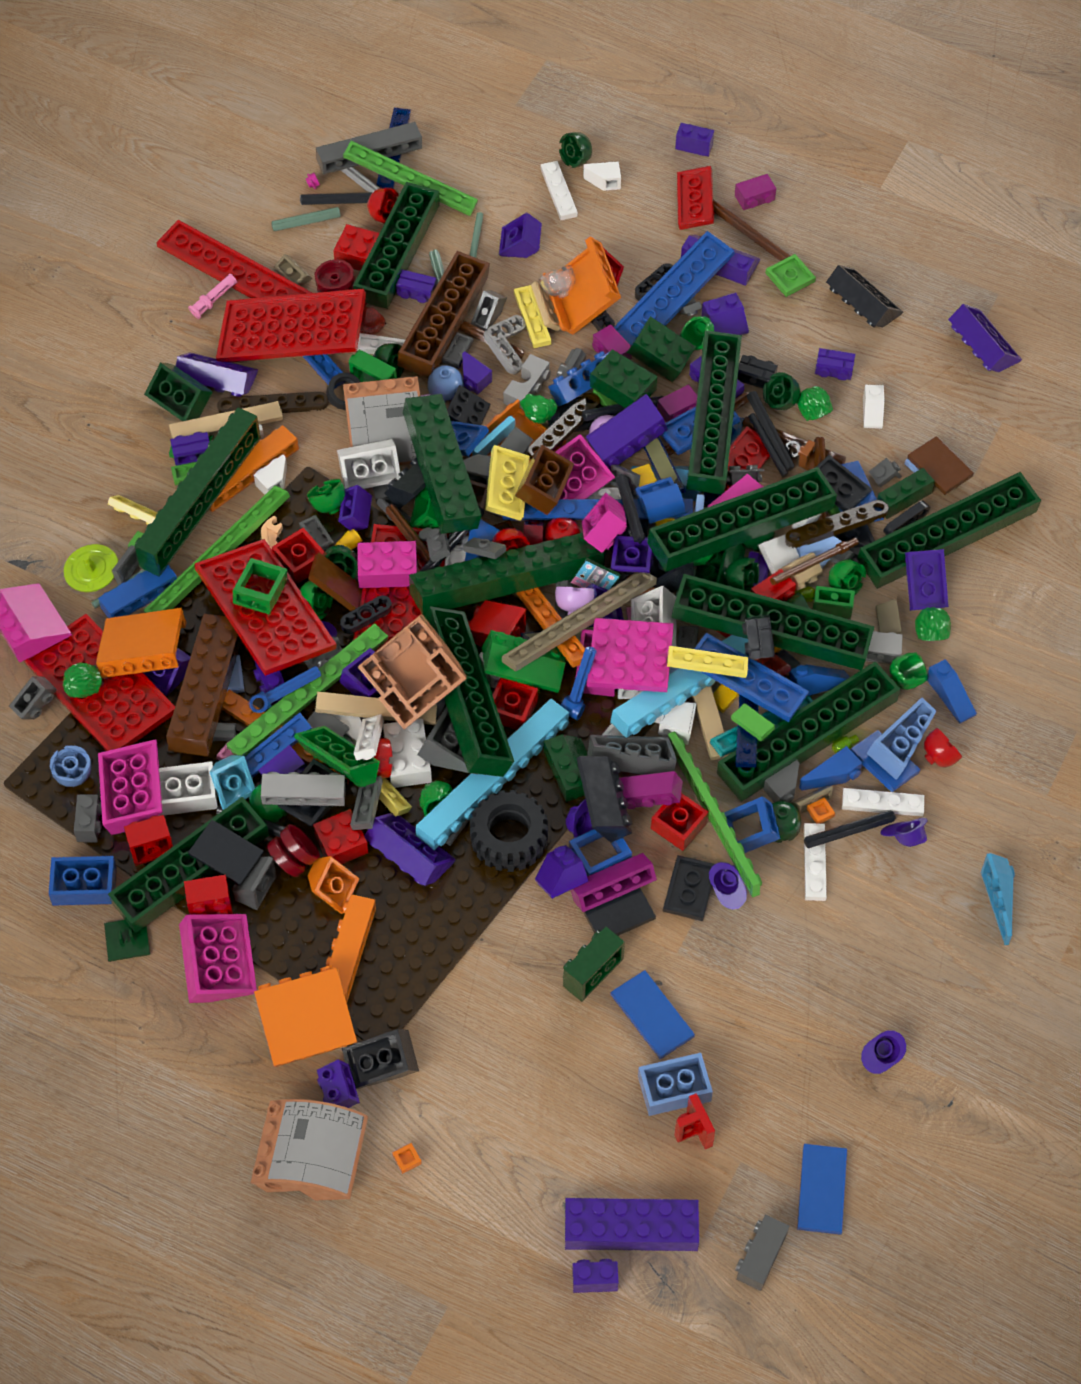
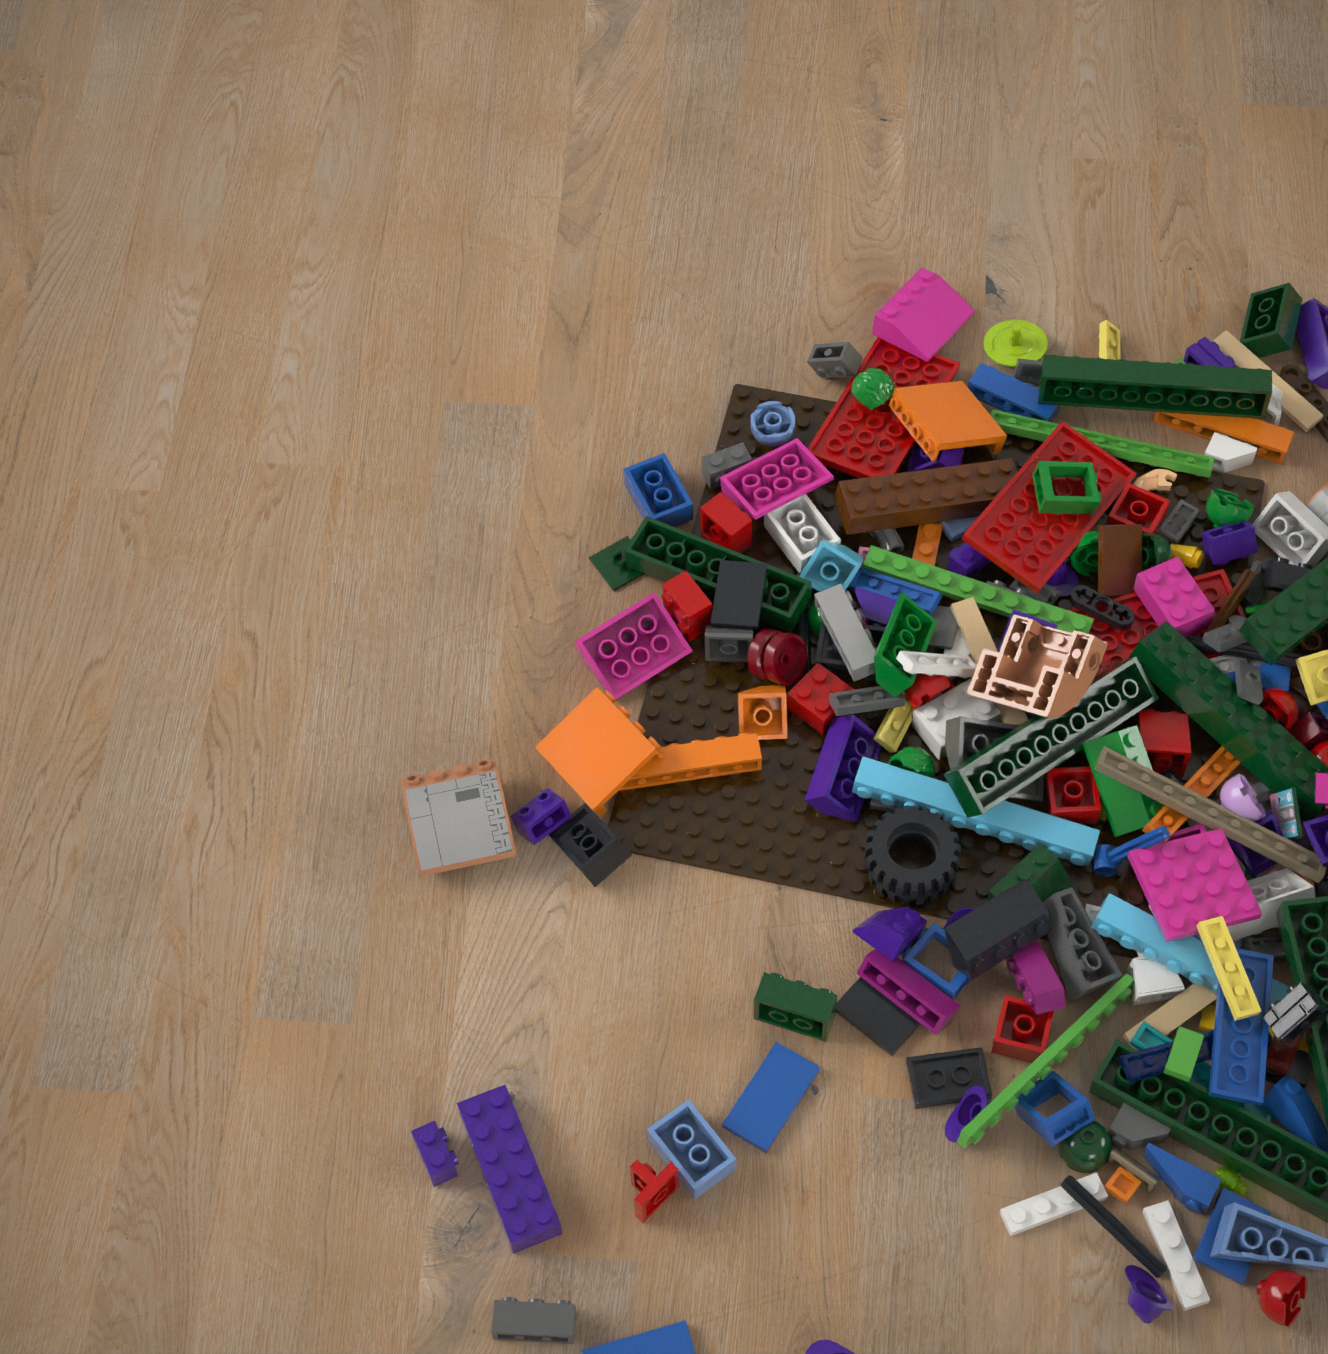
camera: 70 degrees right, 0 degrees up
(285, 689) = (959, 566): blue axle -> none
(406, 1158) = (492, 915): orange plate -> none

